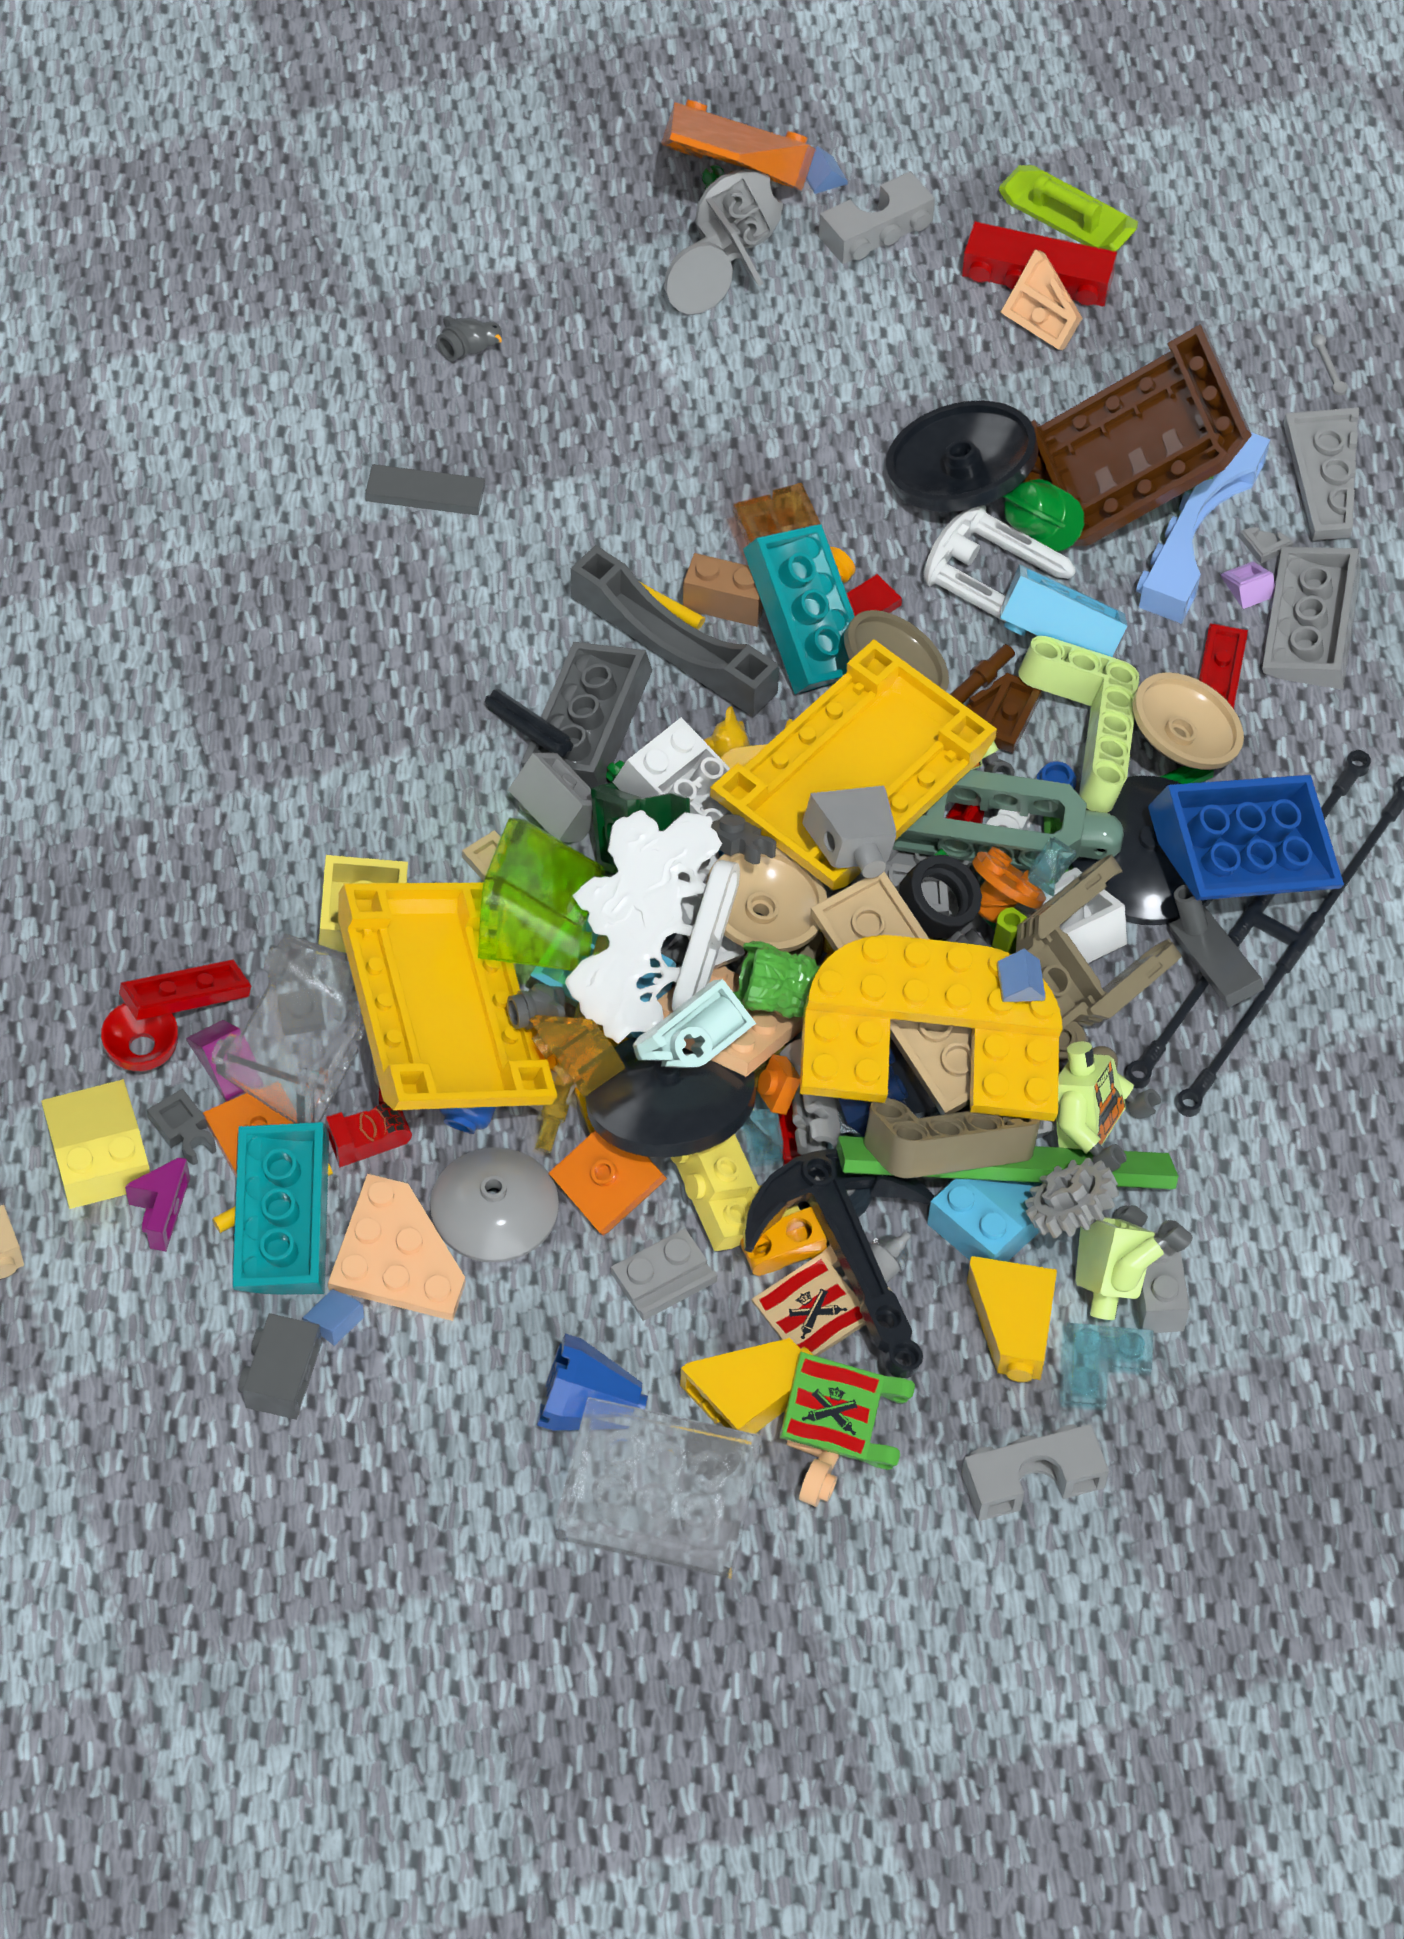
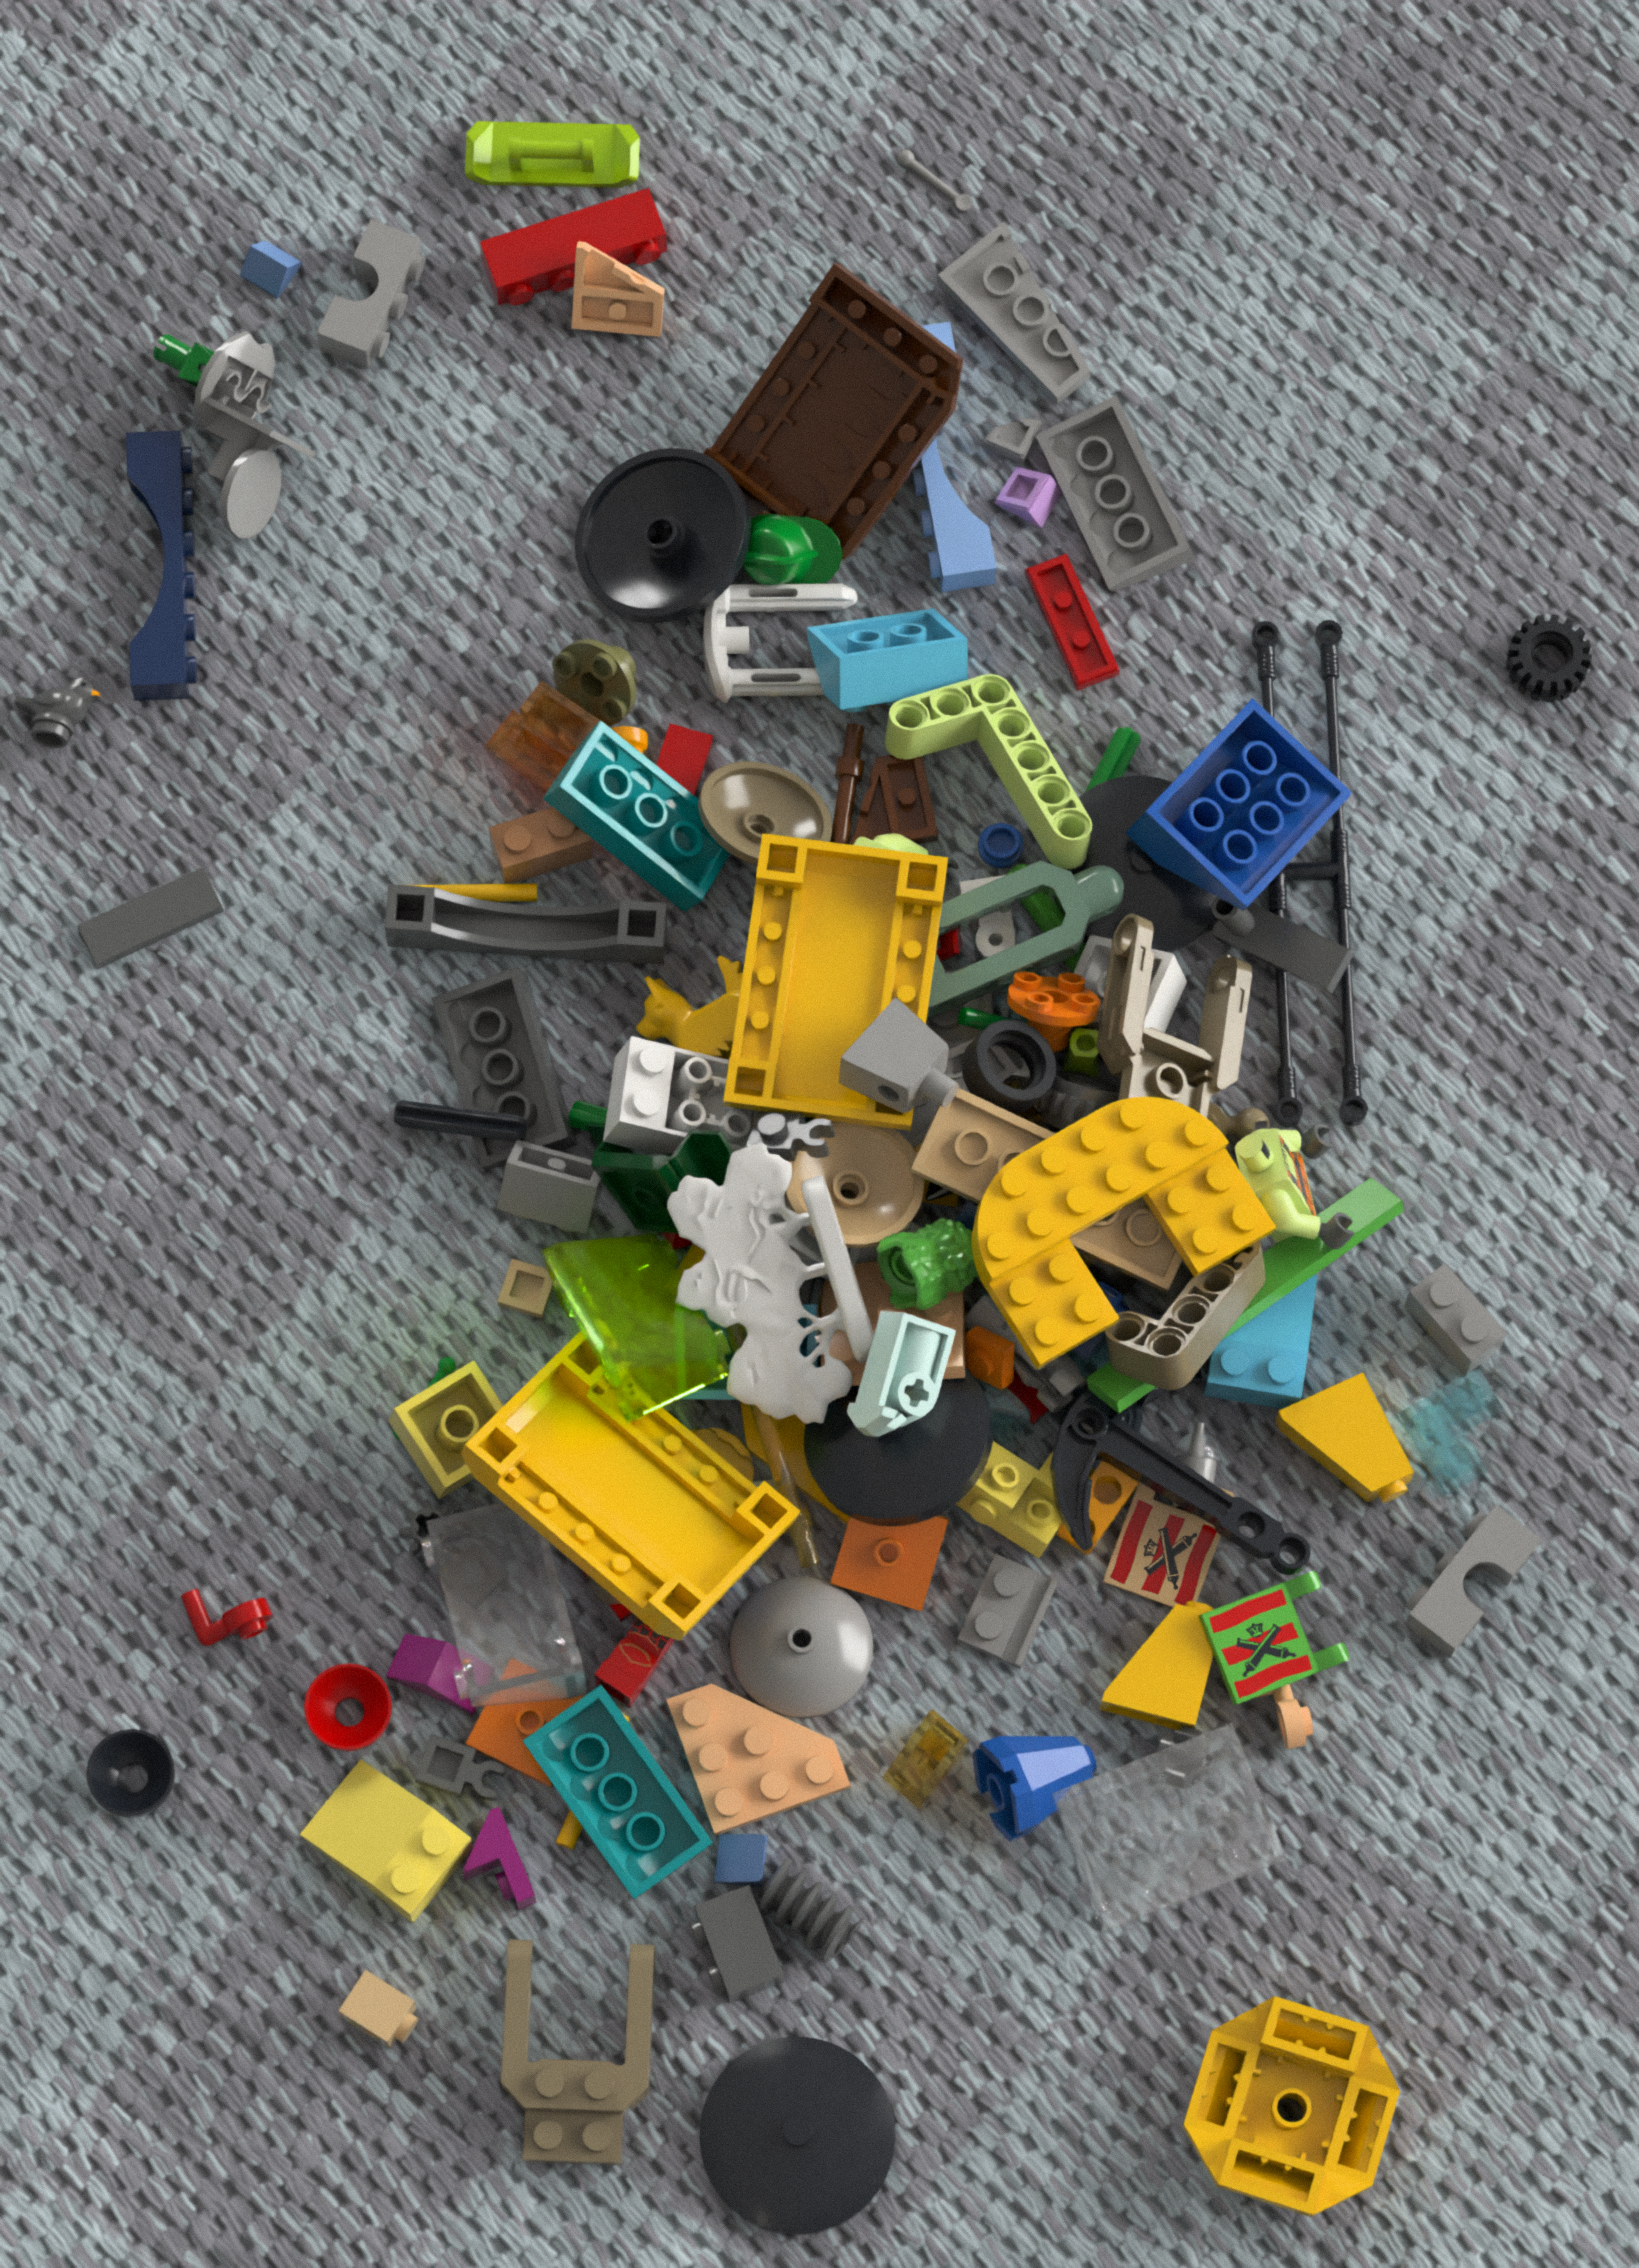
camera: 35 degrees left, 15 degrees up
(81, 1398) = (575, 2105): none -> dark tan plate
(118, 936) = (245, 1619): none -> red plate
(184, 989) = (354, 1632): red tile -> none
(218, 1529) = (797, 2136): none -> black dish
(350, 1377) = (808, 1912): none -> dark grey piece
(523, 1330) = (927, 1758): none -> clear yellow slope
(537, 1001) = (718, 1433): dark grey animal -> none
(564, 338) = (160, 649): none -> dark blue arch
(579, 1048) = (792, 1454): clear yellow slope -> none
(606, 1702) = (1302, 2056): none -> yellow piece
(702, 133) = (171, 314): orange wedge -> none
(846, 512) = (597, 679): none -> olive plate
(1021, 977) = (1165, 1122): medium blue slope -> none
(1051, 865) = (1079, 964): clear light blue slope -> none
(1072, 1197) = (1337, 1298): light grey gear -> none
(1117, 1254) = (1409, 1323): yellowish green torso -> none
(1187, 721) = (1090, 705): tan dish -> none

